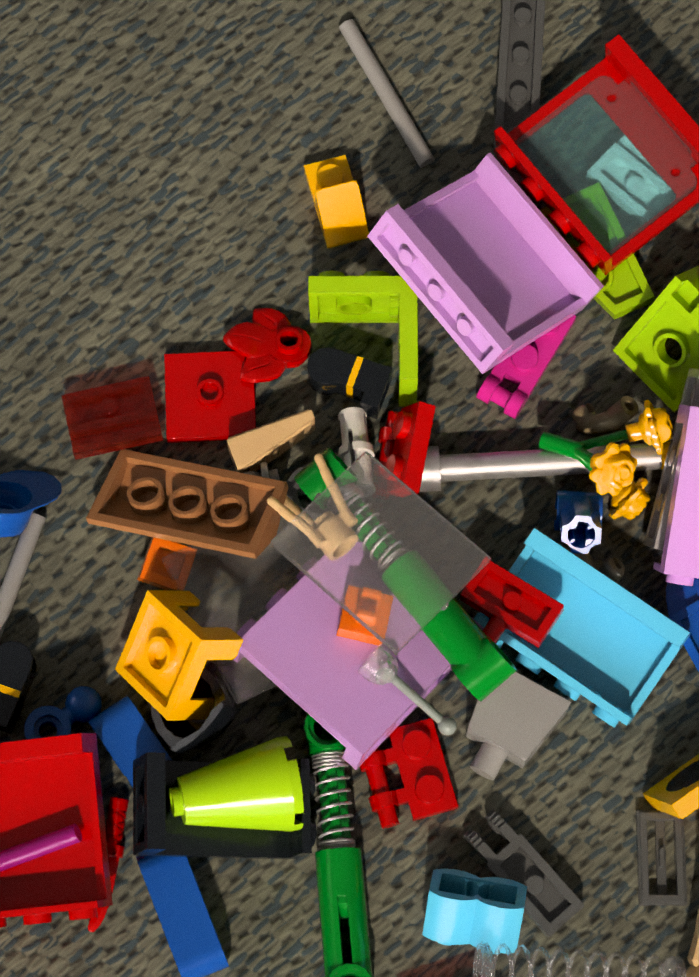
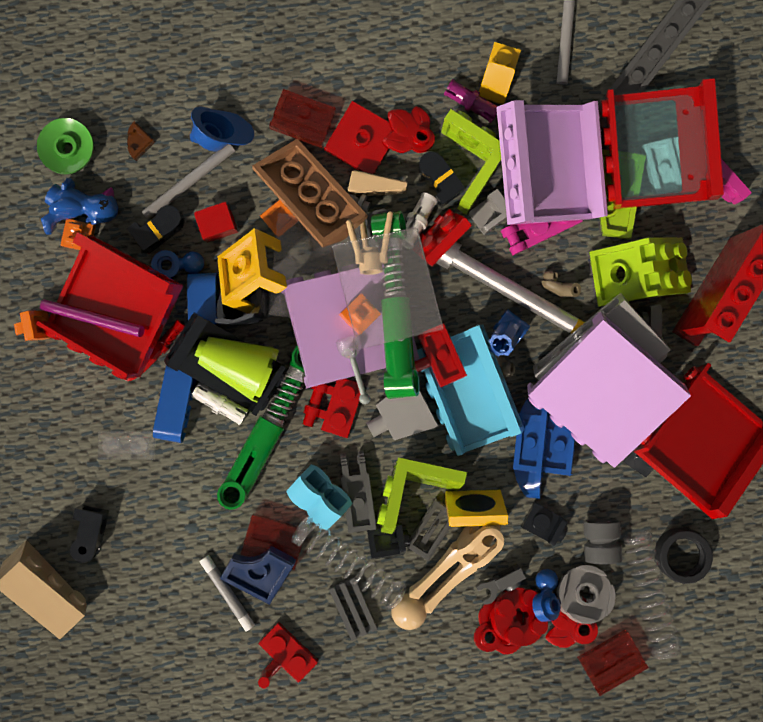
camera: 30 degrees right, 15 degrees up
(83, 626) = (216, 222): none -> red panel
(247, 874) = (219, 403): none -> white pin
(325, 256) = (471, 100): none -> magenta pin
(447, 380) = (489, 212): none -> light grey panel
(590, 783) = (417, 472): none -> lime bracket
(613, 911) = (388, 545): none -> black bracket
(615, 466) = (544, 321): yellow plant -> none

